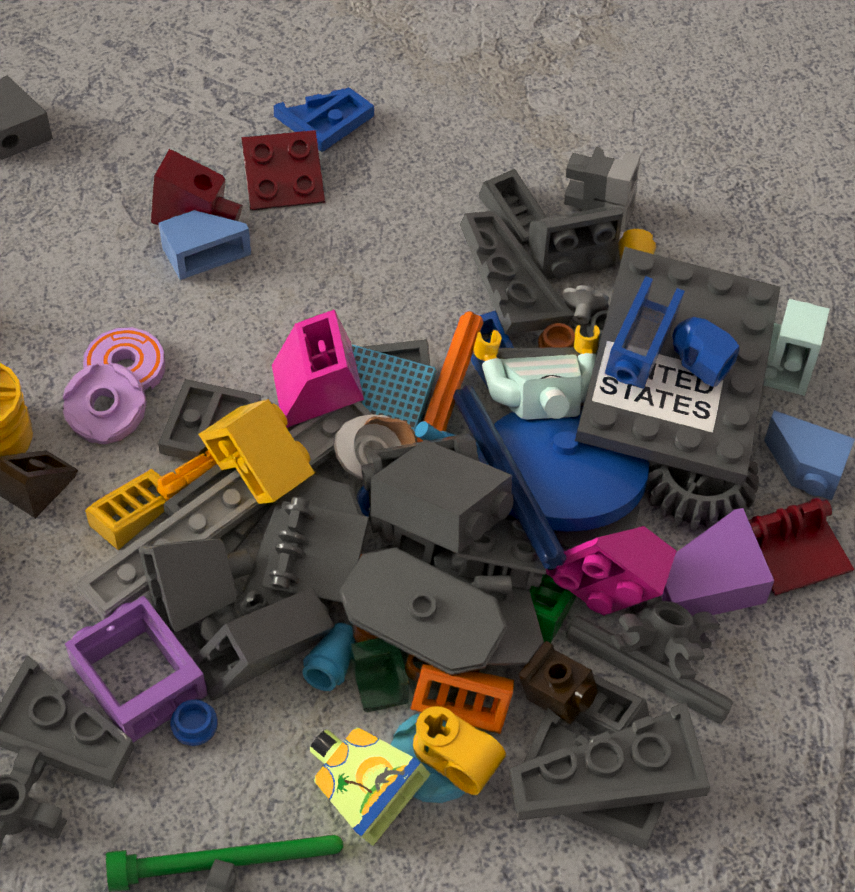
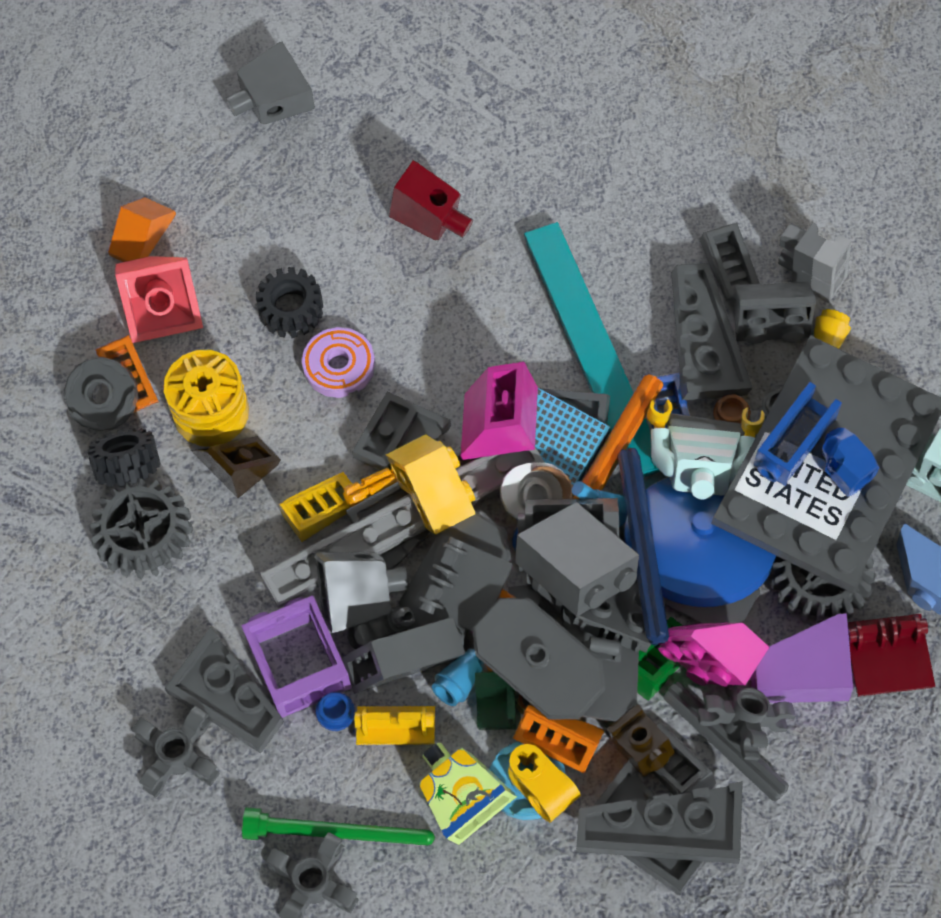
camera: 20 degrees right, 10 degrees up
(64, 329) = (289, 284): none -> black tyre
(120, 418) = (328, 415): lavender tile -> none
(202, 242) = (429, 251): medium blue slope -> none
(268, 724) = (395, 725): none -> yellow hinge
(283, 170) = (519, 184): dark red hinge -> none
(329, 114) = (574, 129): blue wing -> none
(384, 291) = (586, 330): none -> teal tile
(585, 302) = (765, 379): light grey plant -> none

